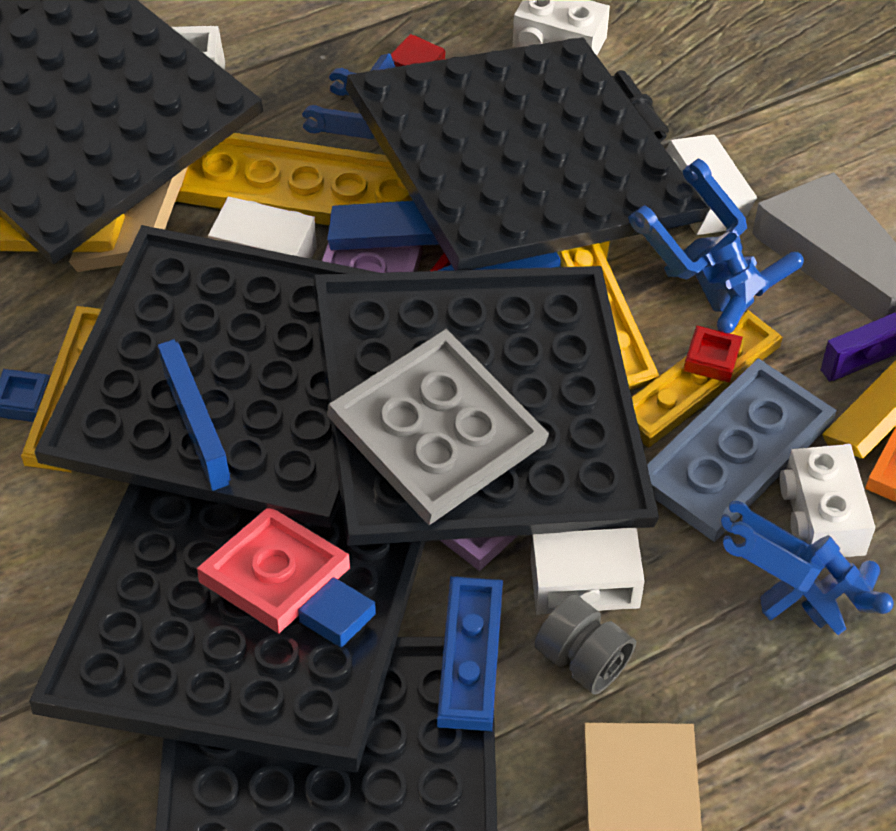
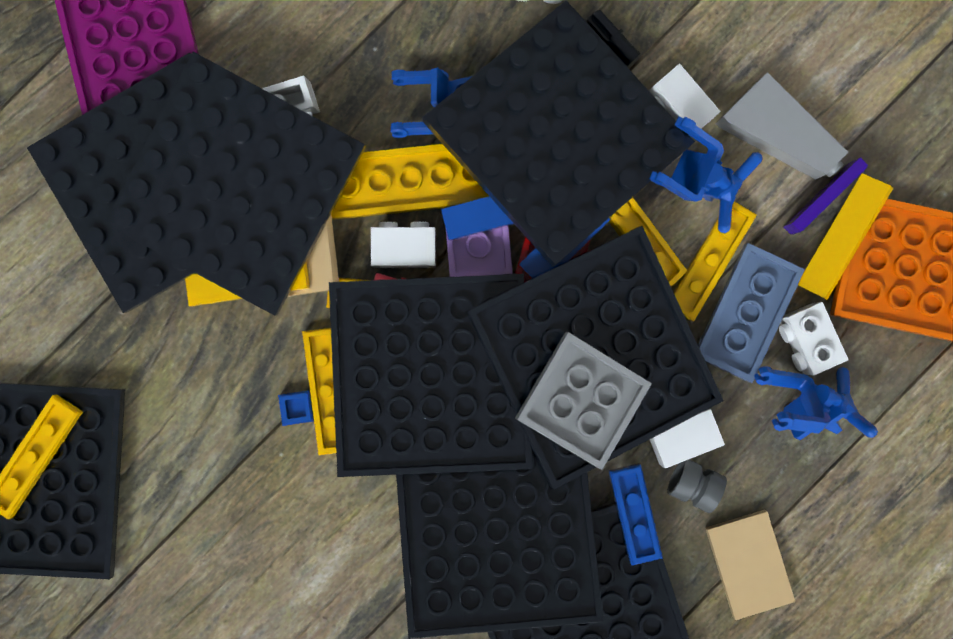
camera: 20 degrees left, 35 degrees up
(194, 414) = (428, 433): blue tile -> none
(272, 568) = (511, 510): coral plate -> none
(337, 612) = (558, 527): blue tile -> none
(416, 50) = (443, 34): red tile -> none
(713, 353) = (718, 247): red tile -> none

